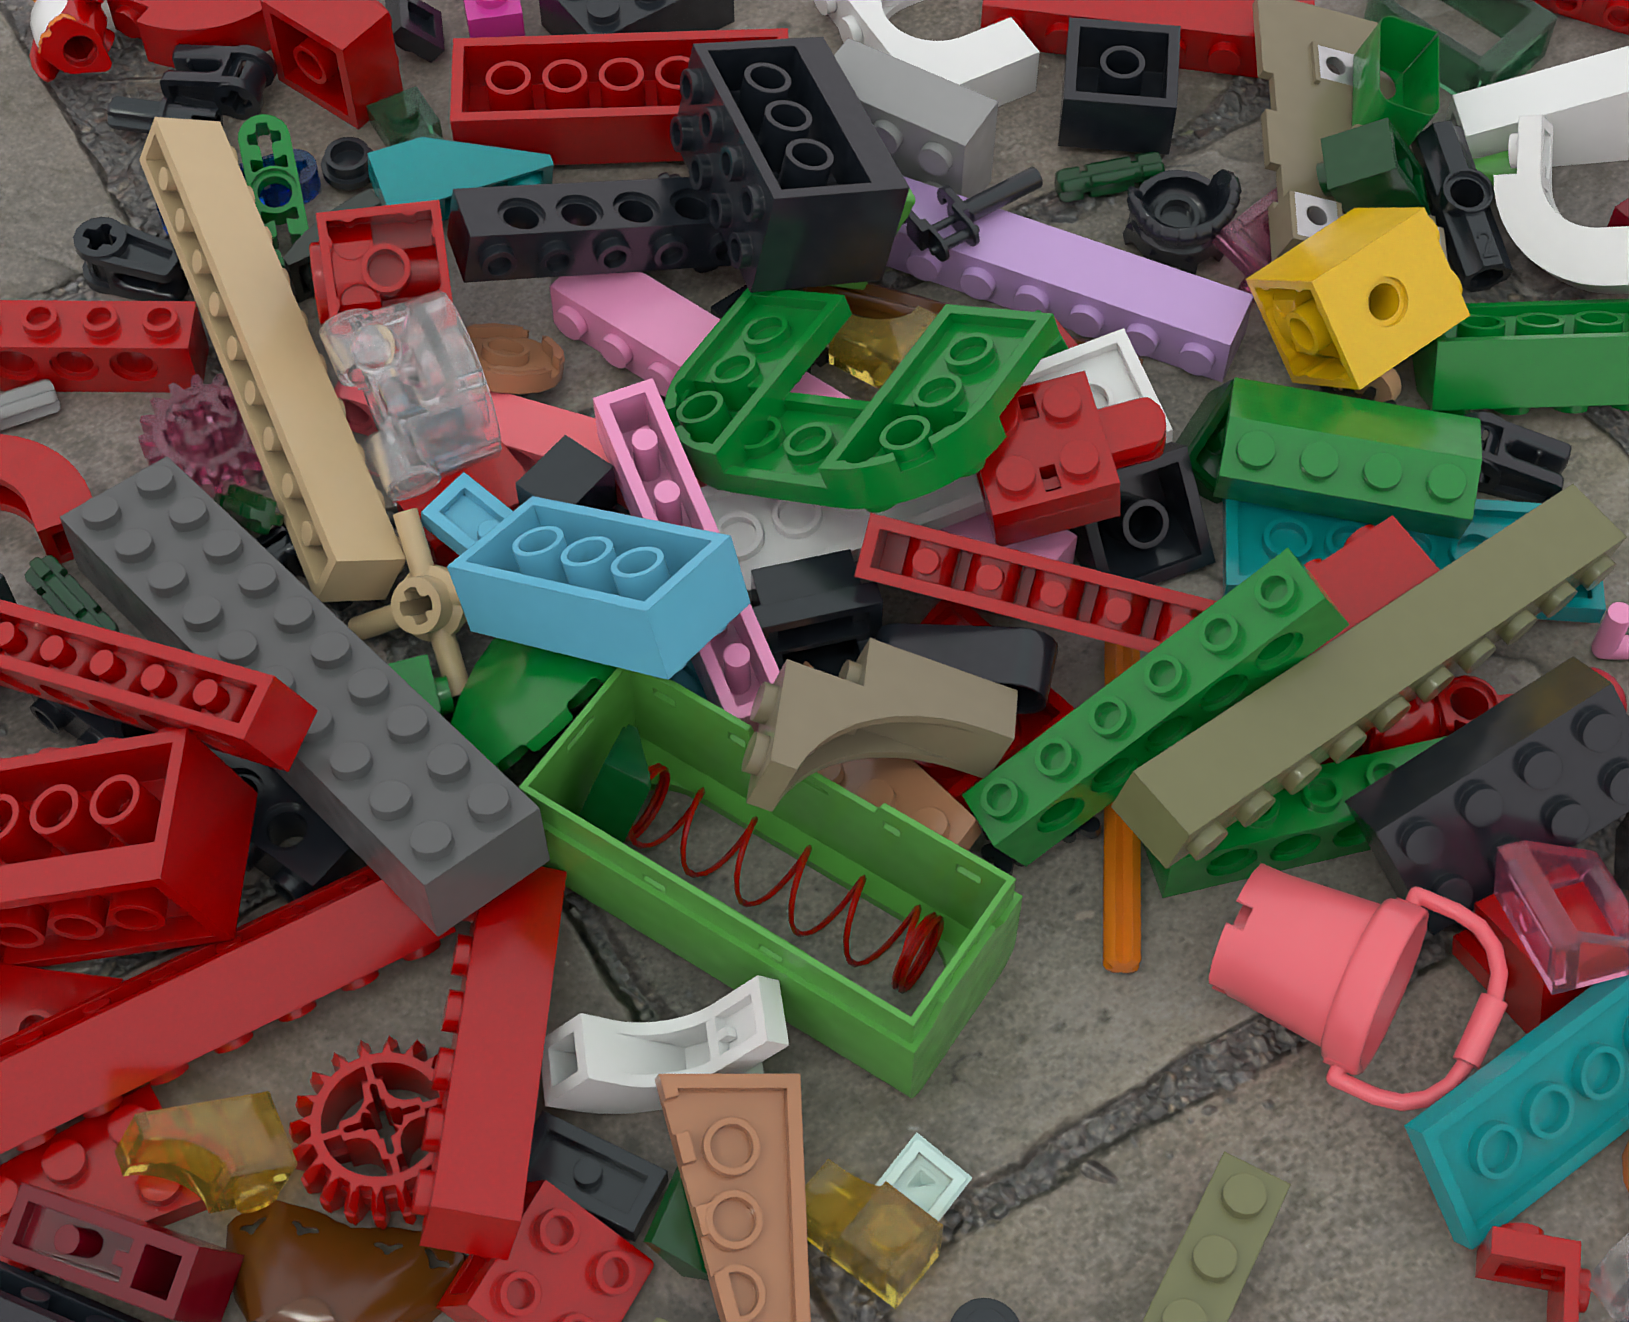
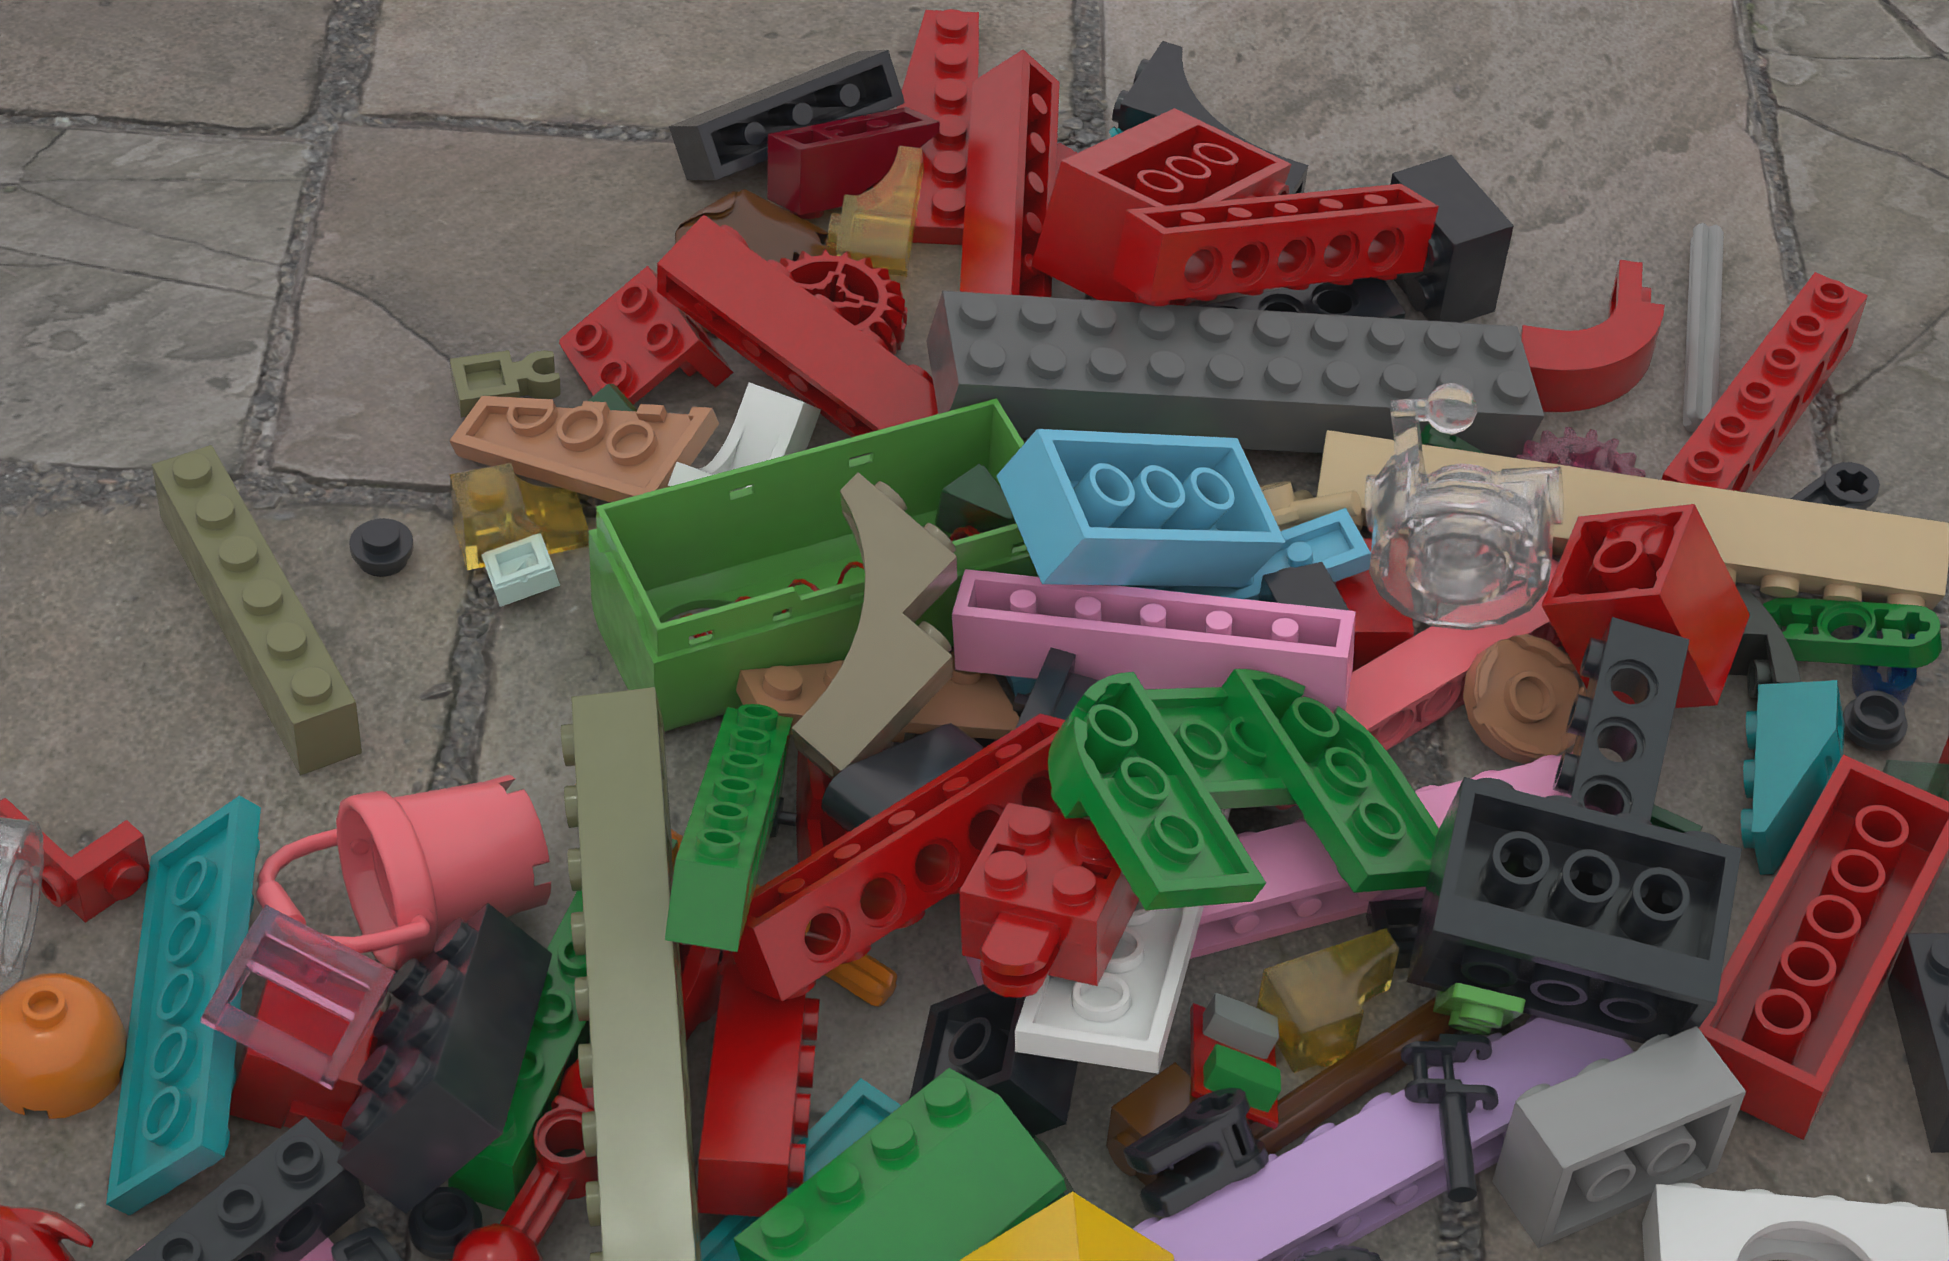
camera: 120 degrees right, 10 degrees down
(596, 1174) = (713, 387): black plate -> none
(1150, 333) = (1218, 1150): none -> black piece

